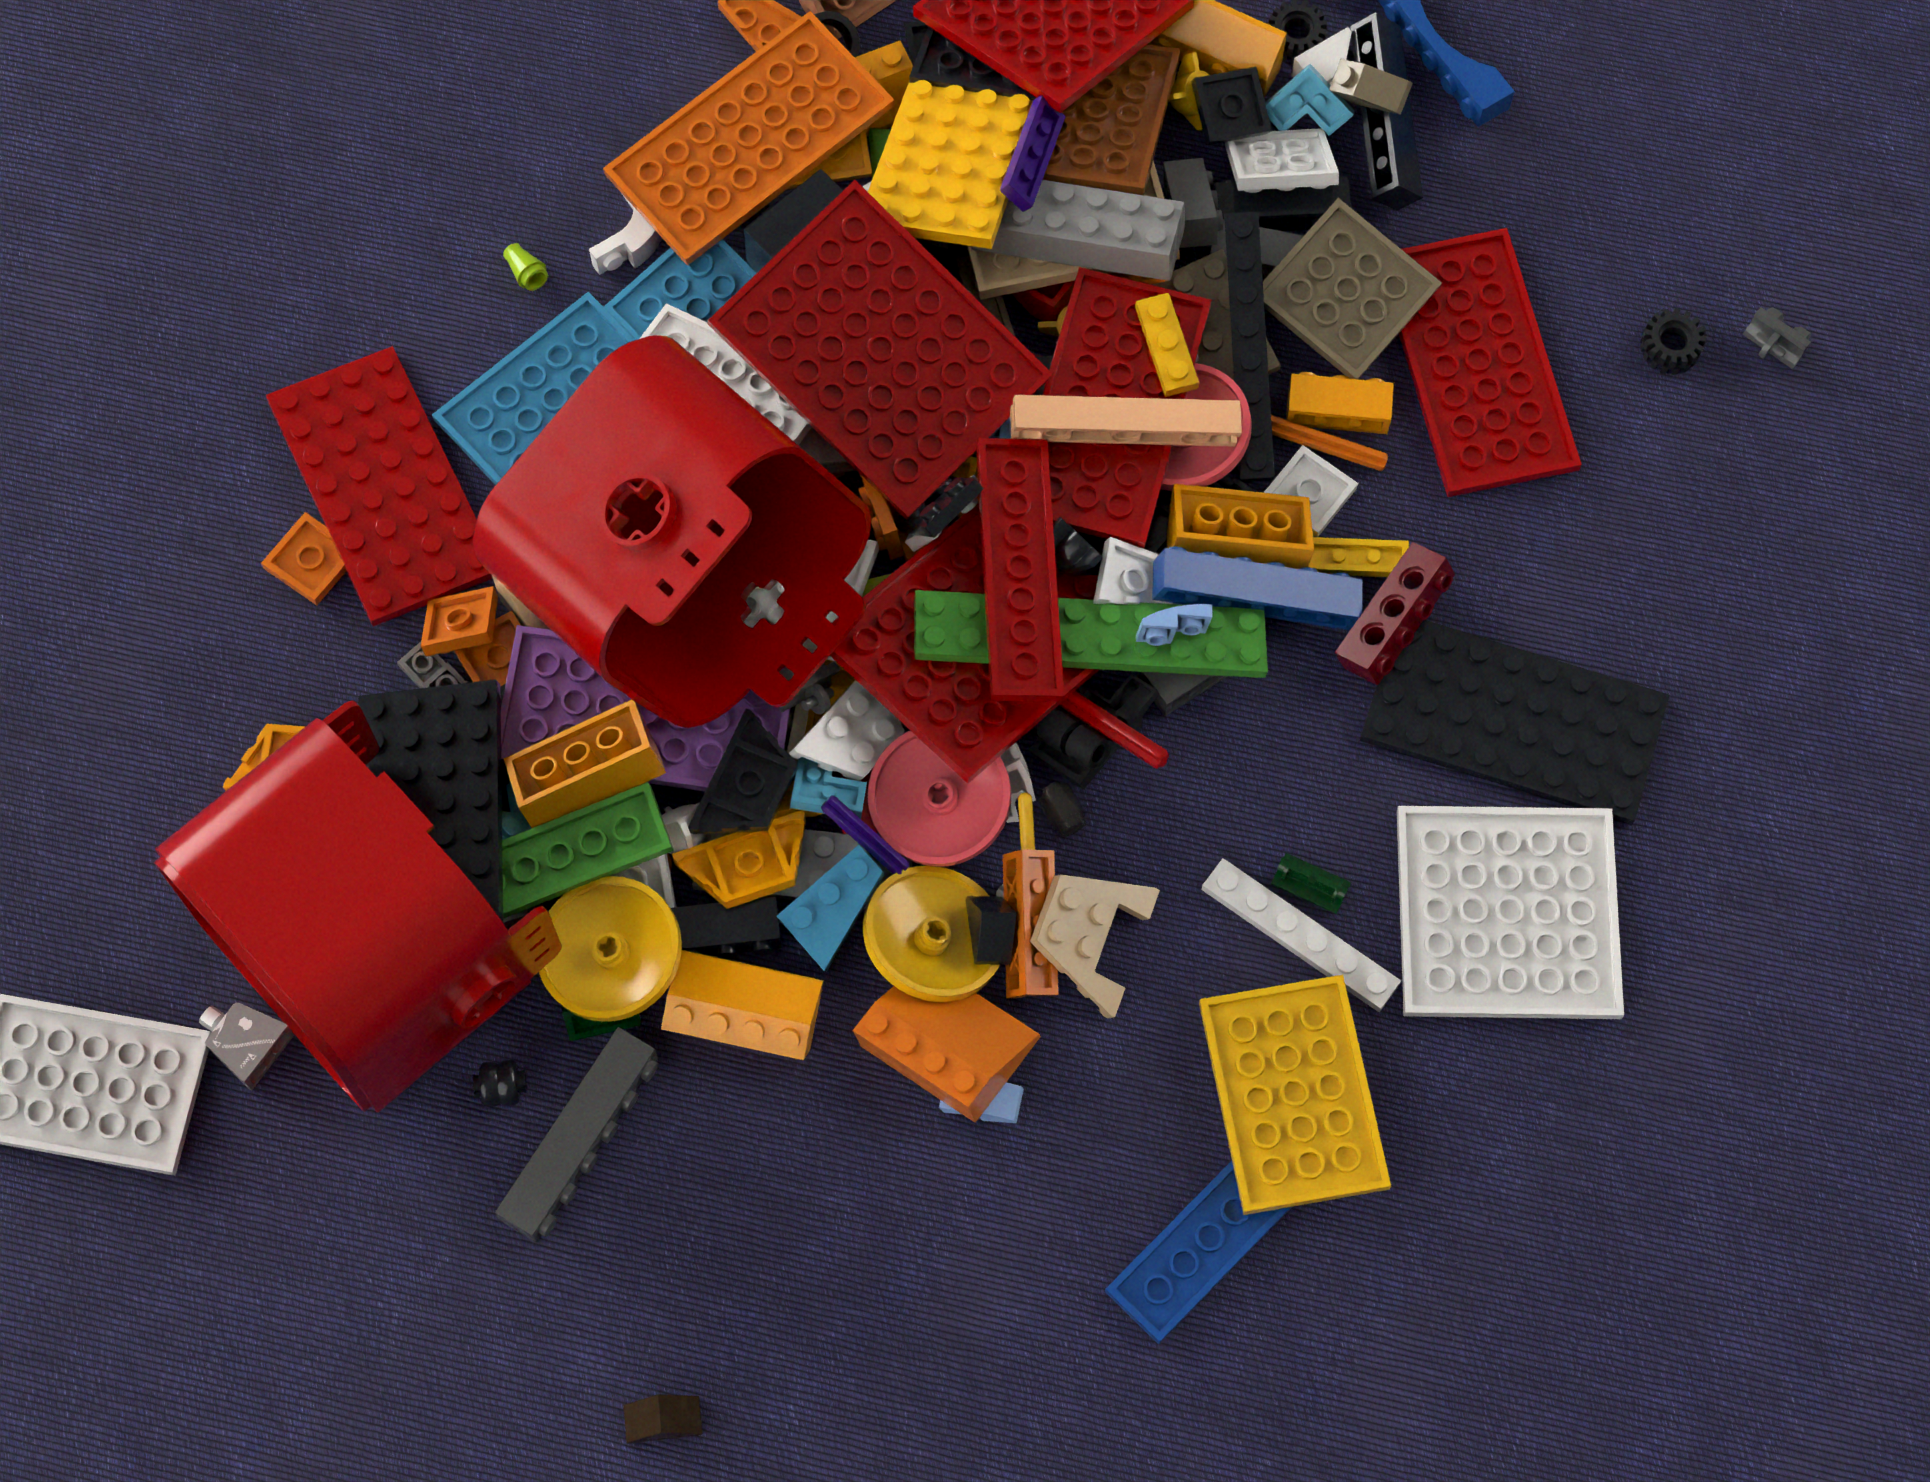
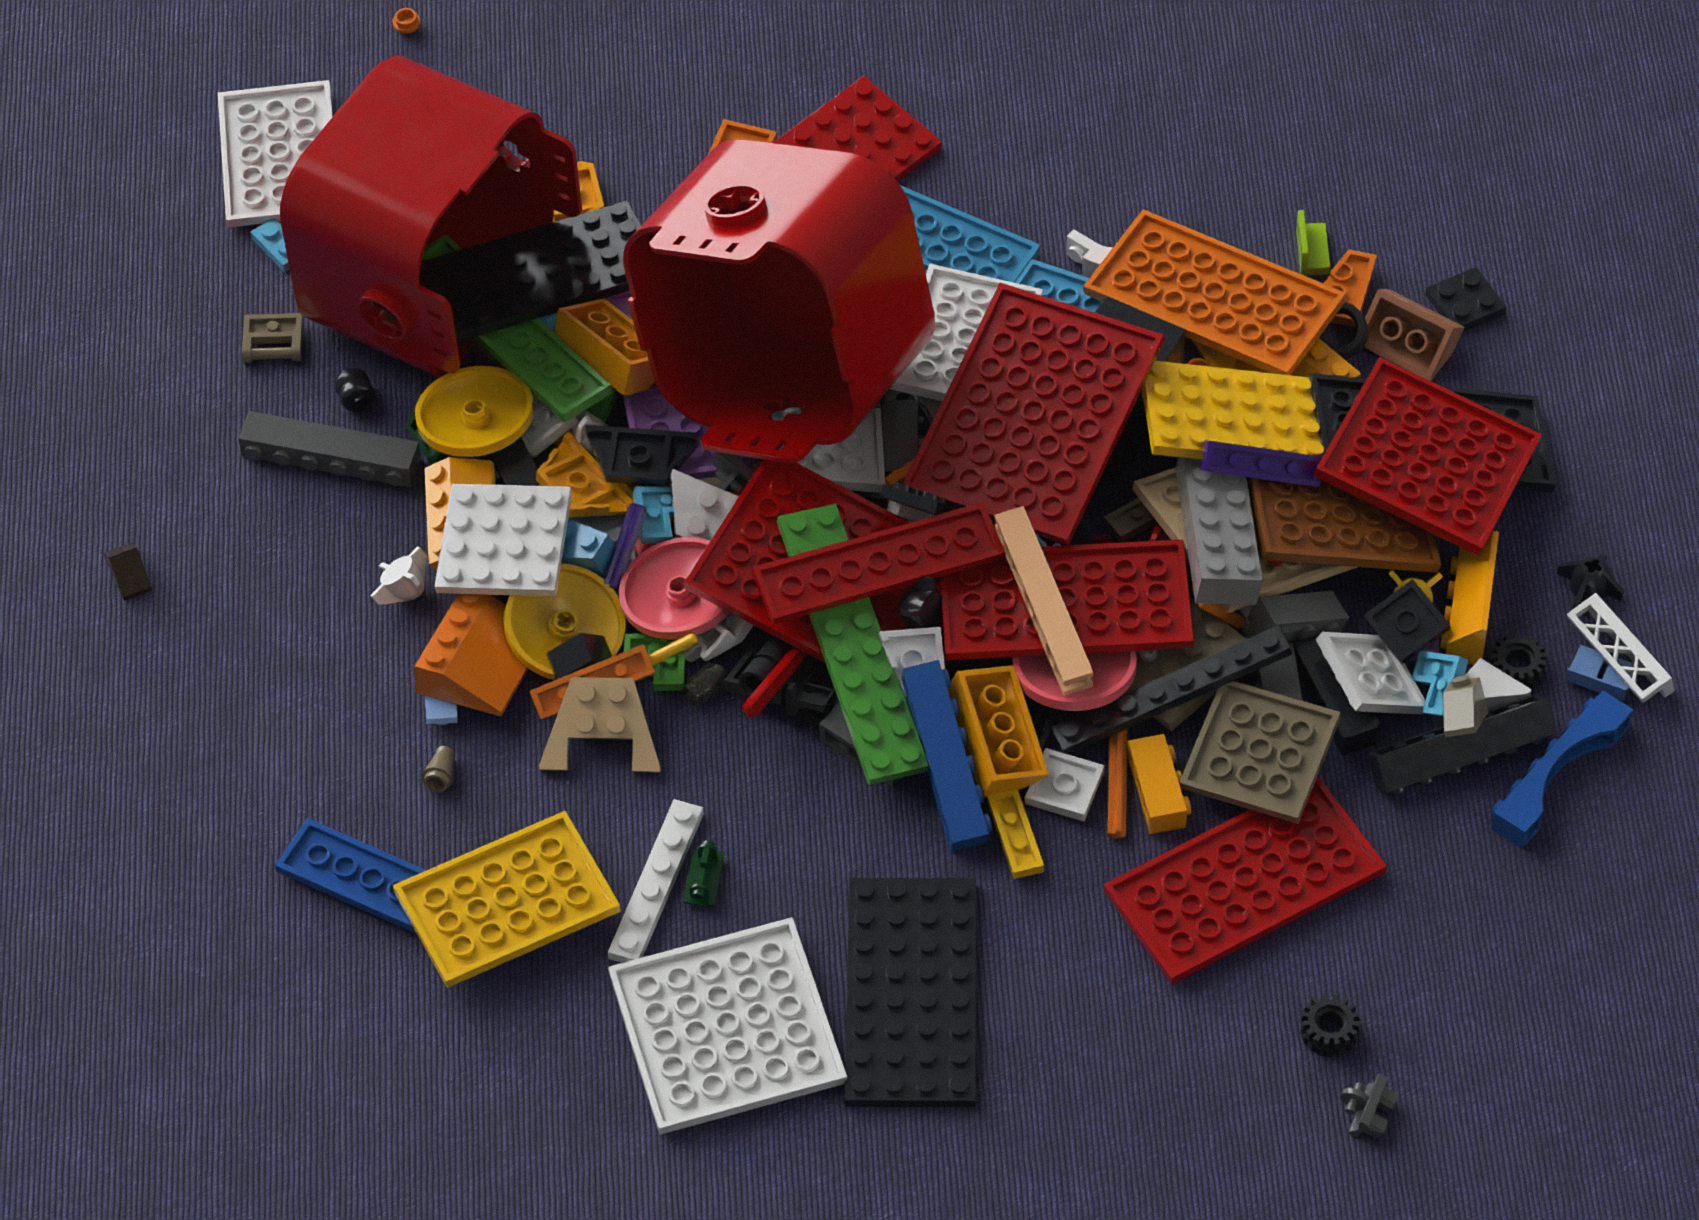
camera: 75 degrees right, 15 degrees down
(229, 1120) = (271, 241): none -> medium azure plate
(365, 1158) = (272, 330): none -> dark tan plate
(526, 268) = (1047, 201): lime cone -> none
(694, 36) = (1312, 247): none -> lime panel
(804, 1097) = (402, 579): none -> white piece
(821, 961) = (503, 540): none -> white plate
(988, 866) = (670, 672): none -> bright green plate
(1082, 1125) = (439, 771): none -> dark tan cone
(1162, 625) = (874, 683): light blue slope -> none
(1167, 344) = (1133, 617): yellow plate -> none
(1396, 595) = (965, 865): dark red brick -> none

